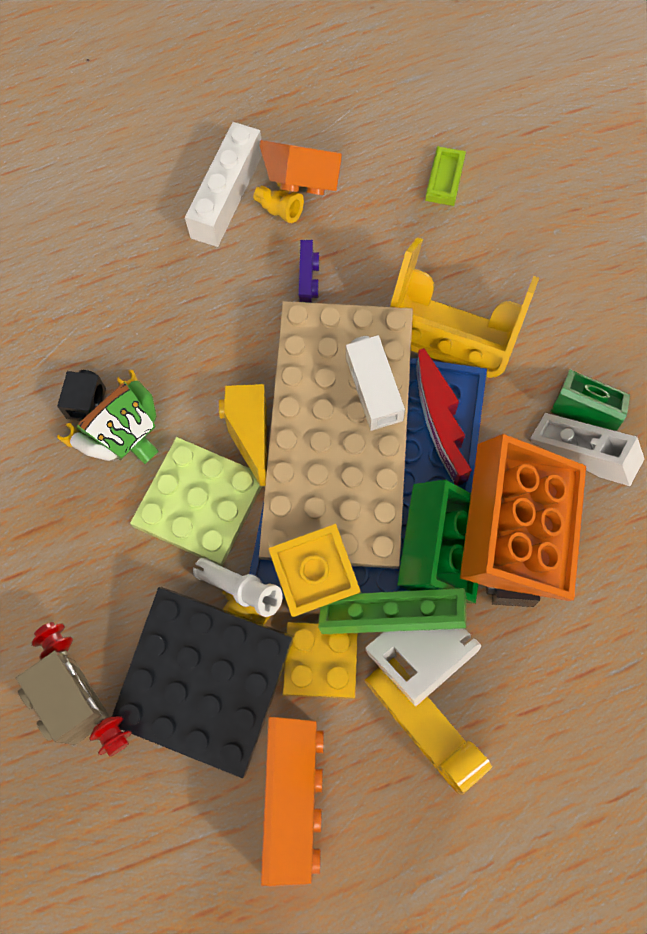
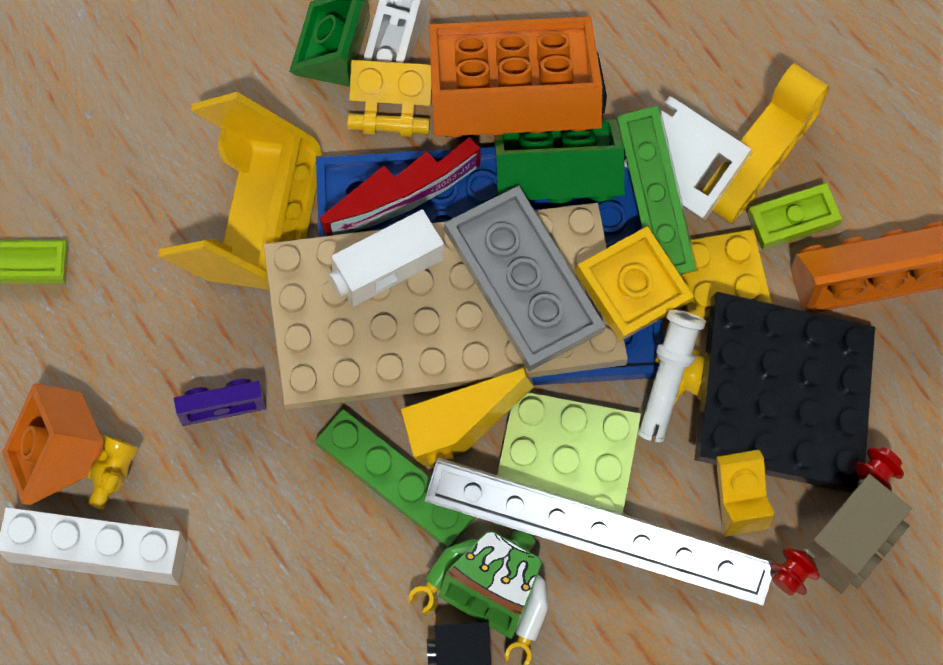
camera: 105 degrees left, 0 degrees up
(123, 619) = (743, 493): none -> yellow slope
(132, 510) = (600, 531): none -> tile
(206, 390) = (390, 477): none -> bright green plate
(338, 483) = (524, 278): none -> light grey plate
(359, 737) = (794, 216): none -> lime plate
(541, 424) = (390, 84): none -> yellow plate

